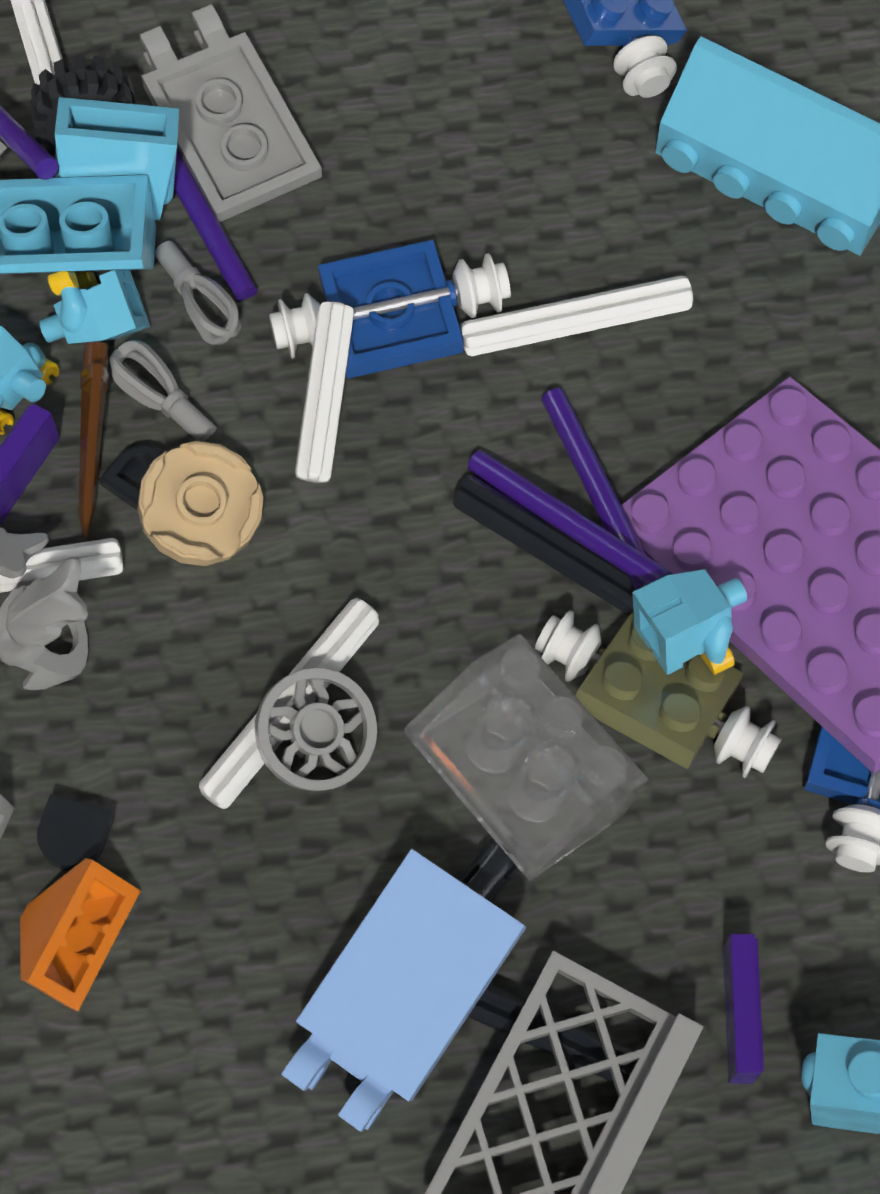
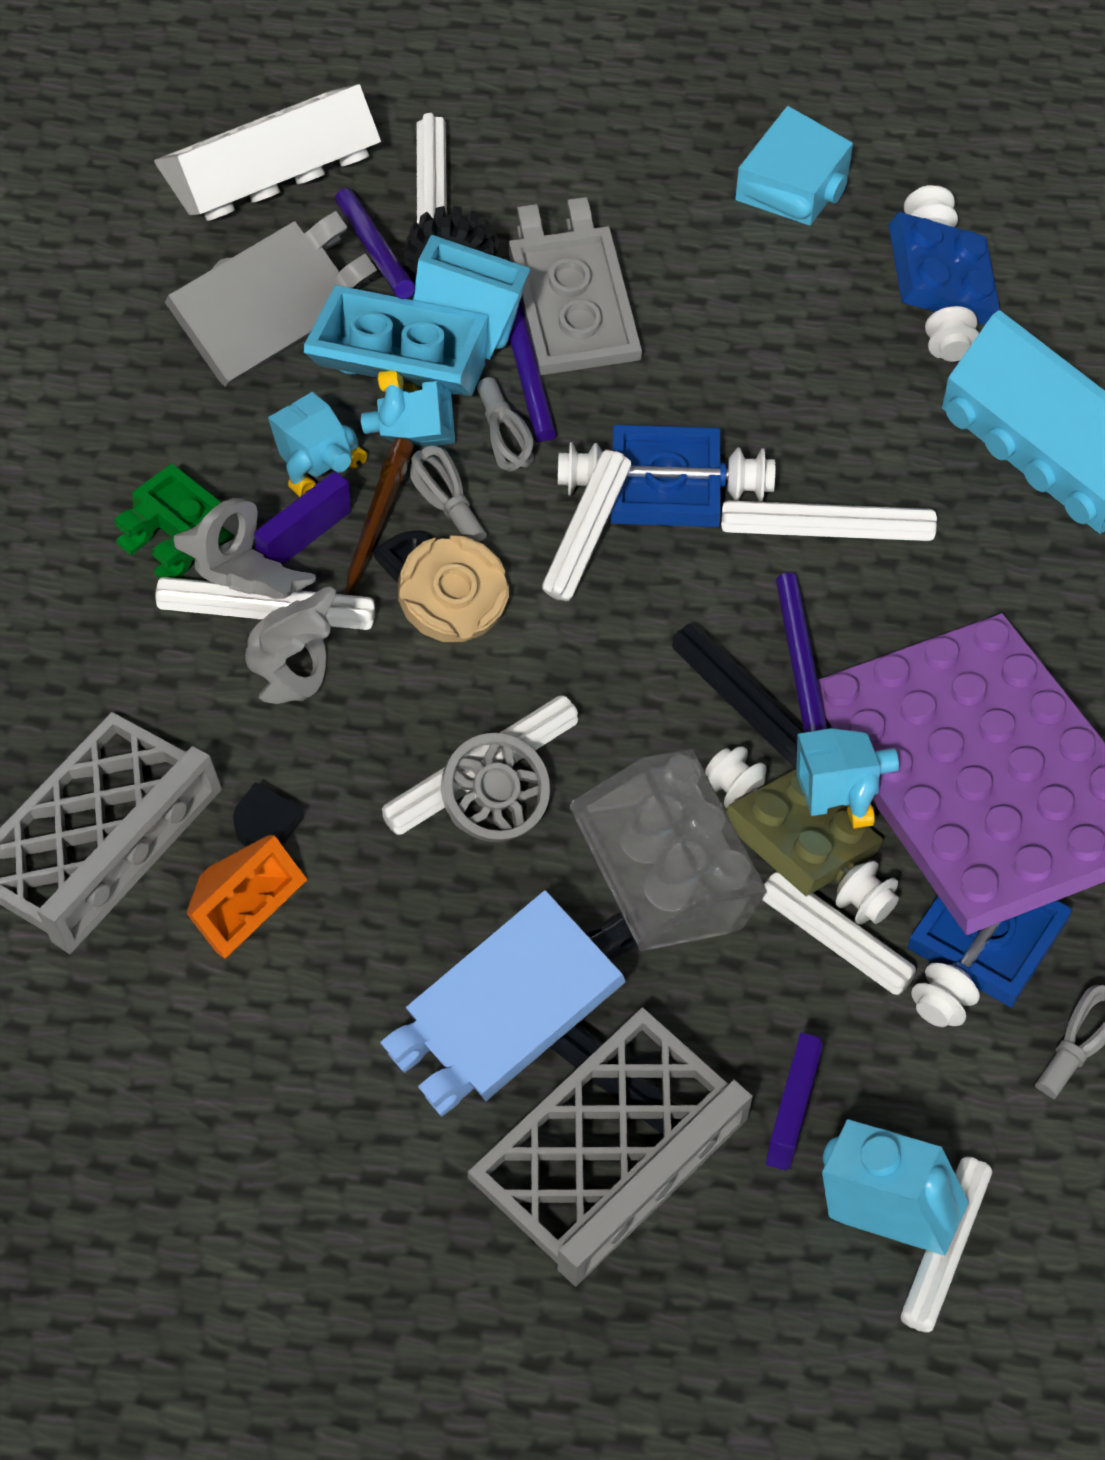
camera: 15 degrees right, 10 degrees down
(566, 519) = (760, 671): dark purple bar -> none
(733, 796) = (840, 934): none -> white axle

